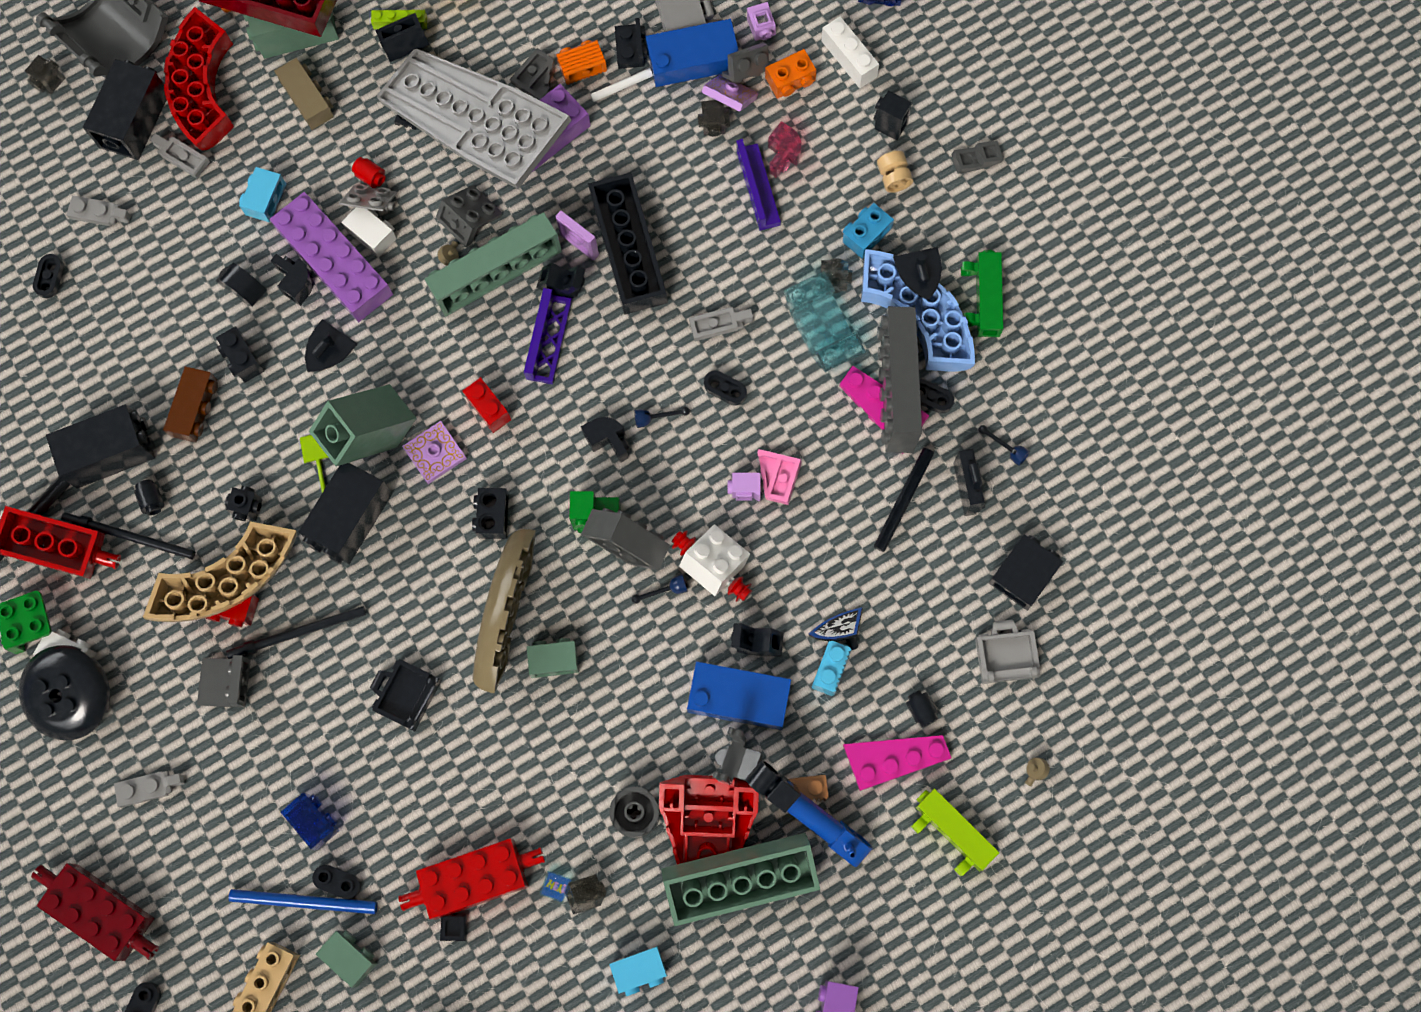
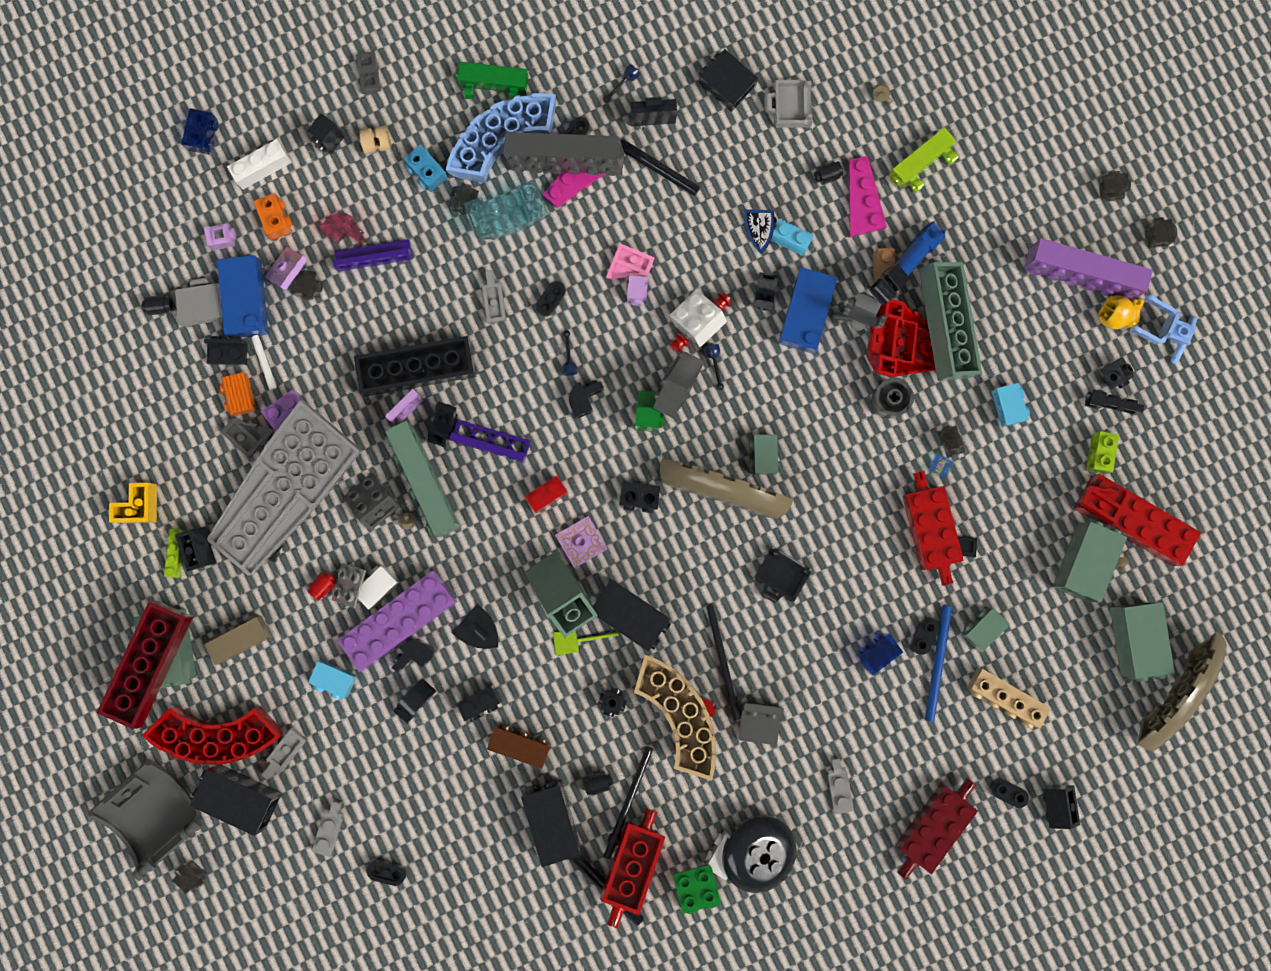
camera: 90 degrees left, 10 degrees up
(747, 63) = (261, 250): dark grey bracket -> none
(920, 271) = (470, 127): black shield -> none

